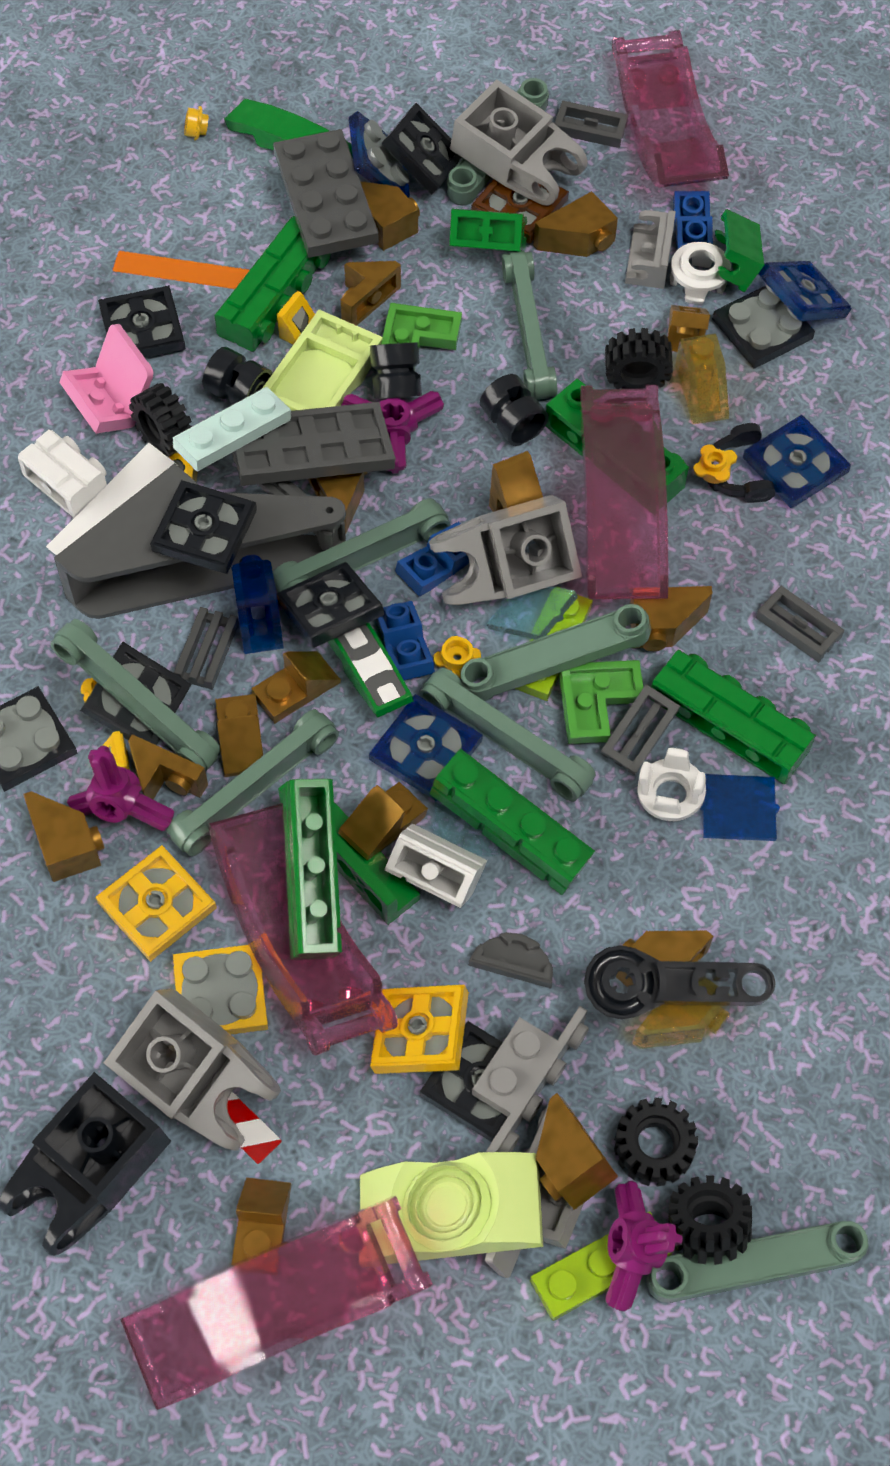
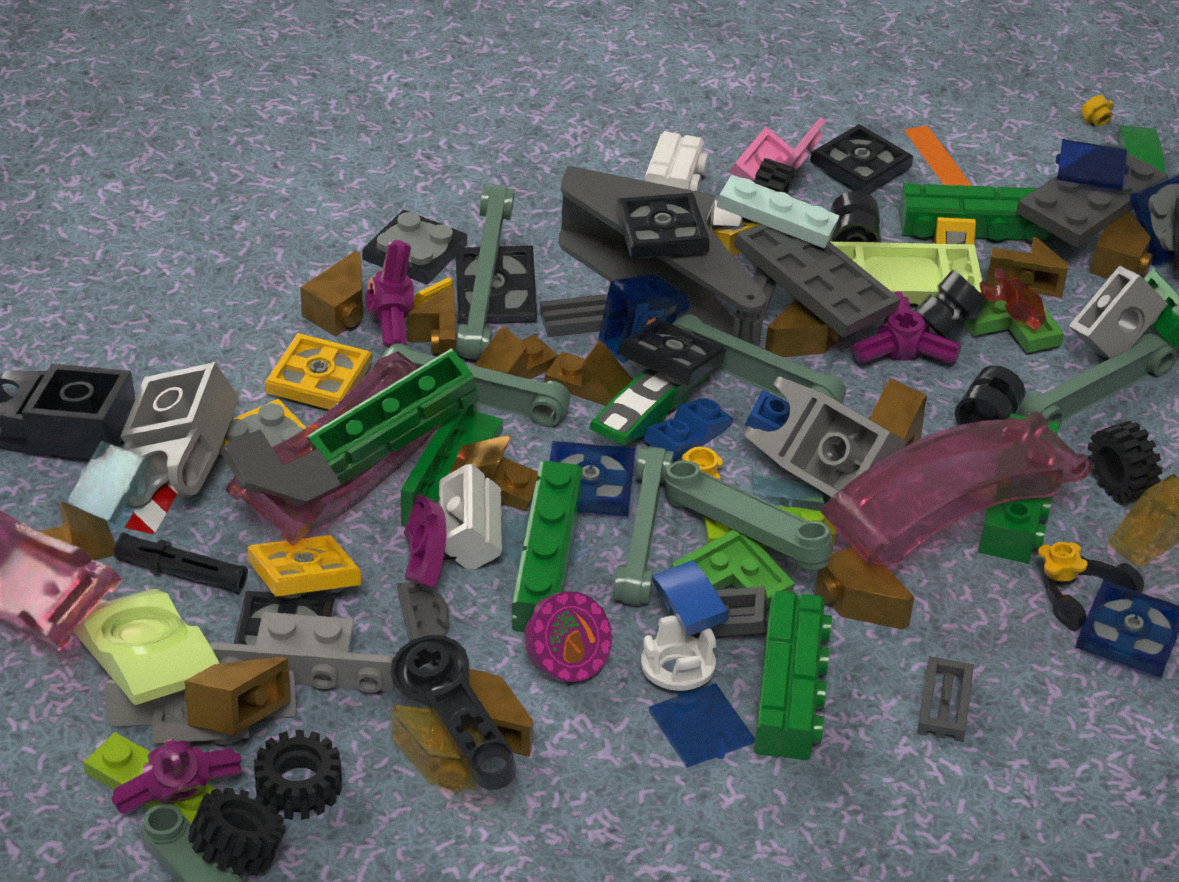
camera: 60 degrees right, 20 degrees down
(218, 1155) = (108, 482): none -> clear light blue piece
(305, 171) = (1092, 164): none -> clear blue piece
(327, 1012) = (260, 470): none -> dark grey tile
(331, 1145) = (163, 557): none -> black pin
(423, 321) = (1020, 299): none -> clear red plate
(448, 913) = (427, 541): none -> magenta tile
(483, 264) = (1099, 320): none -> light grey brick
(621, 856) = (568, 637): none -> magenta tile
(631, 743) = (690, 597): none -> blue slope

